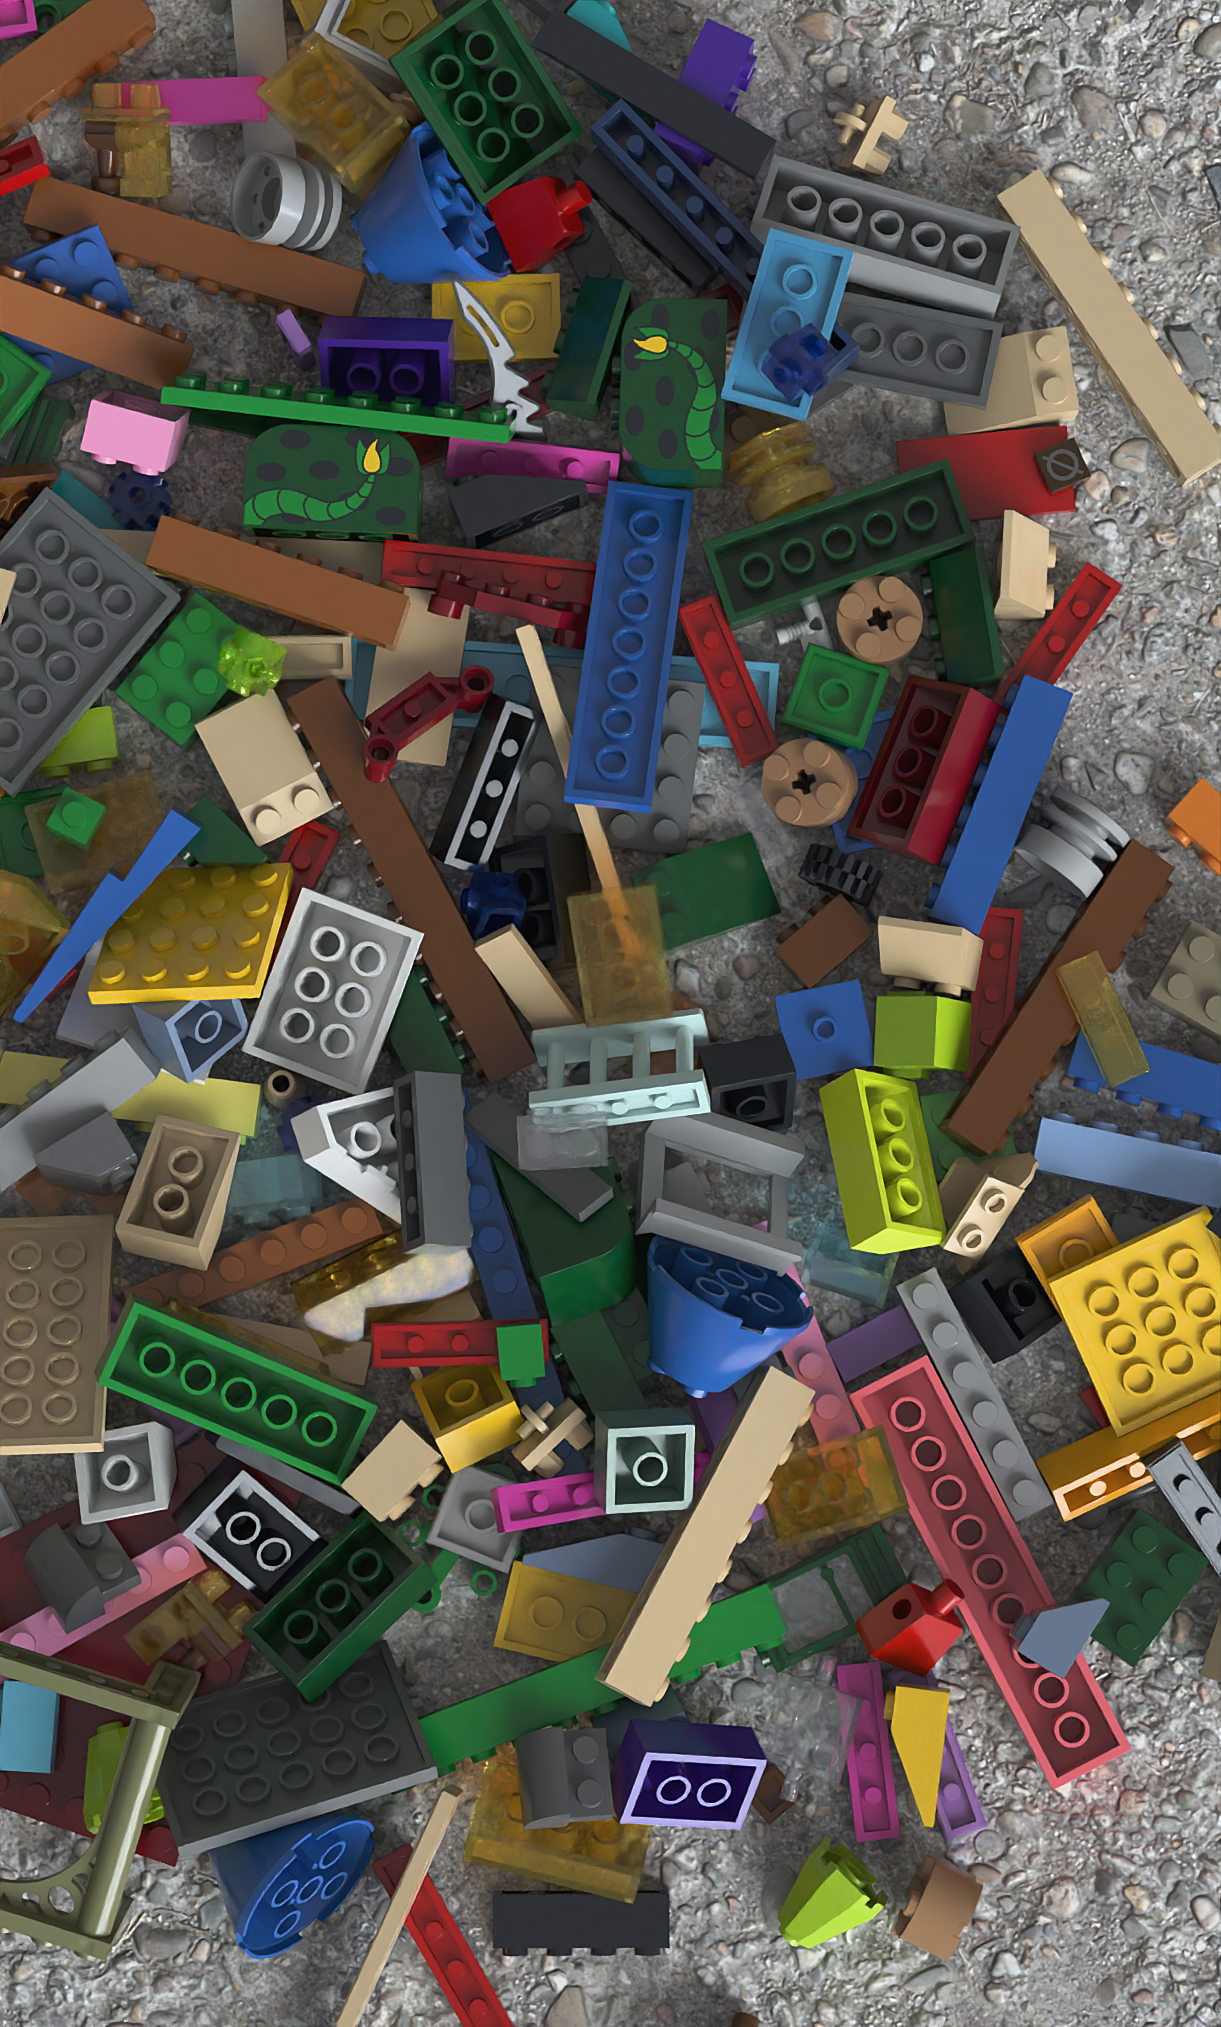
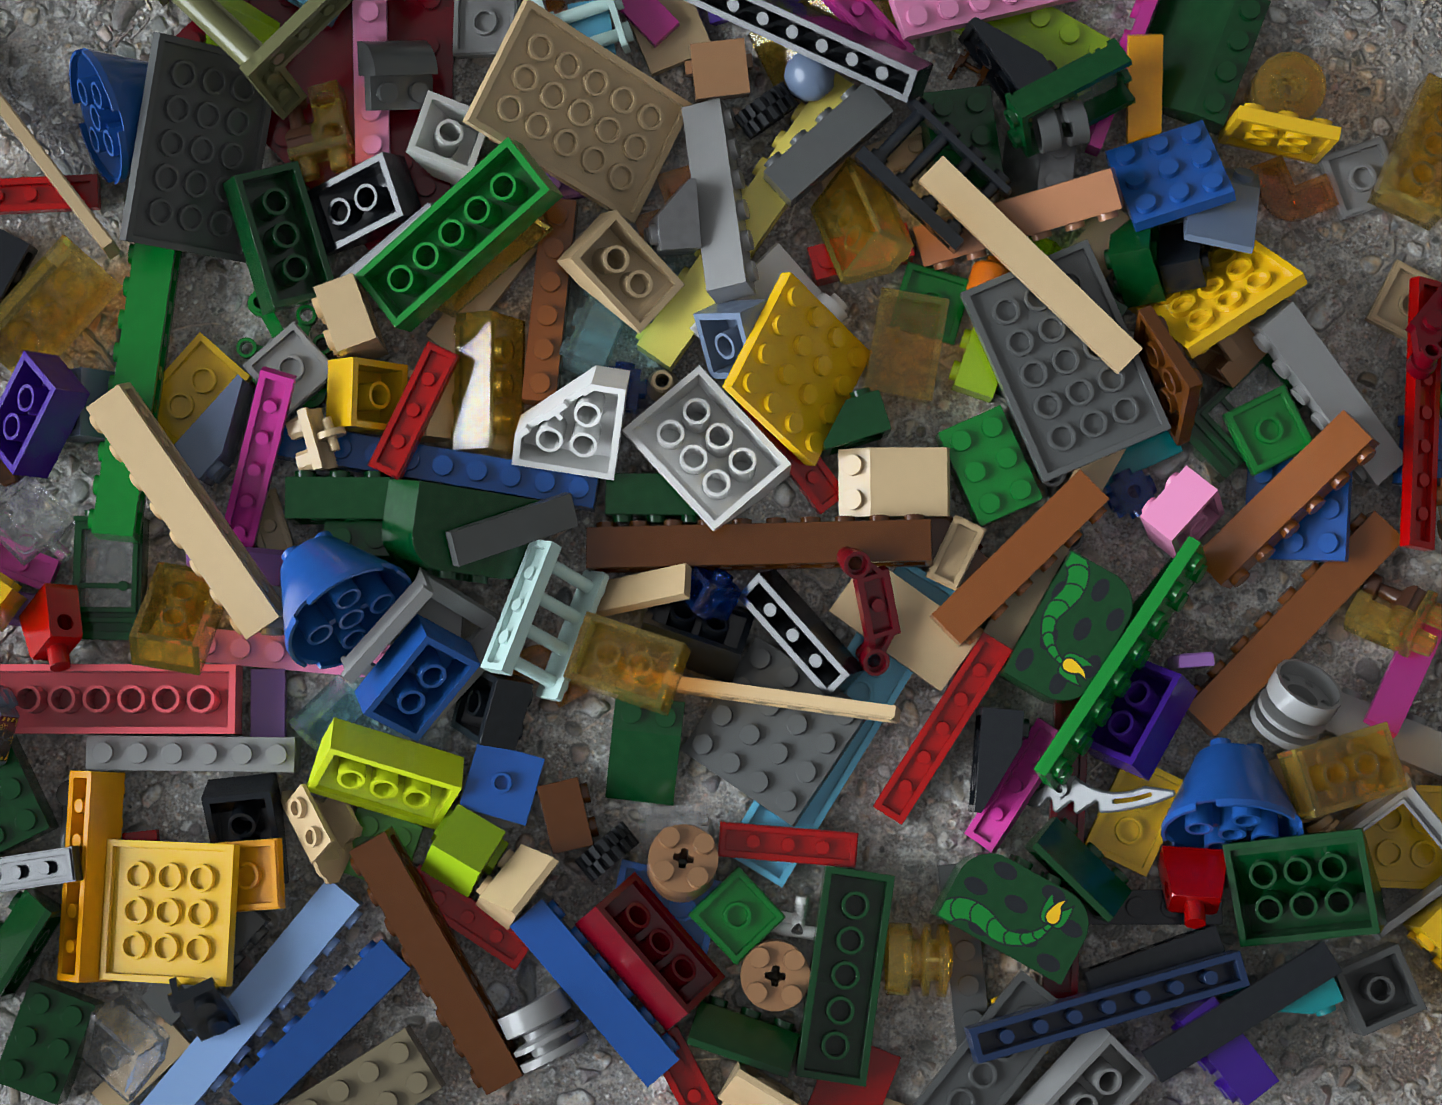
camera: 115 degrees right, 0 degrees up
(76, 819) = (919, 328): green brick -> none
(110, 902) = (848, 322): blue slope -> none
(250, 662) = (970, 508): clear neon green brick -> none
(432, 1163) = (546, 453): dark grey brick -> none
(453, 593) = (928, 705): dark red plate -> none
(520, 1353) = (381, 446): green brick -> none
(562, 1139) = (512, 551): clear bracket -> none
(563, 1777) = (76, 328): dark grey brick -> none
(629, 647) = (845, 783): blue plate -> none
(644, 1460) = (259, 493): sand green brick -> none
(759, 1179) = (417, 678): none -> blue brick
(794, 286) = (1018, 1018): dark azure plate -> none
(800, 362) = (979, 1004): clear blue brick -> none
(1102, 1019) = (403, 984): clear yellow tile -> none

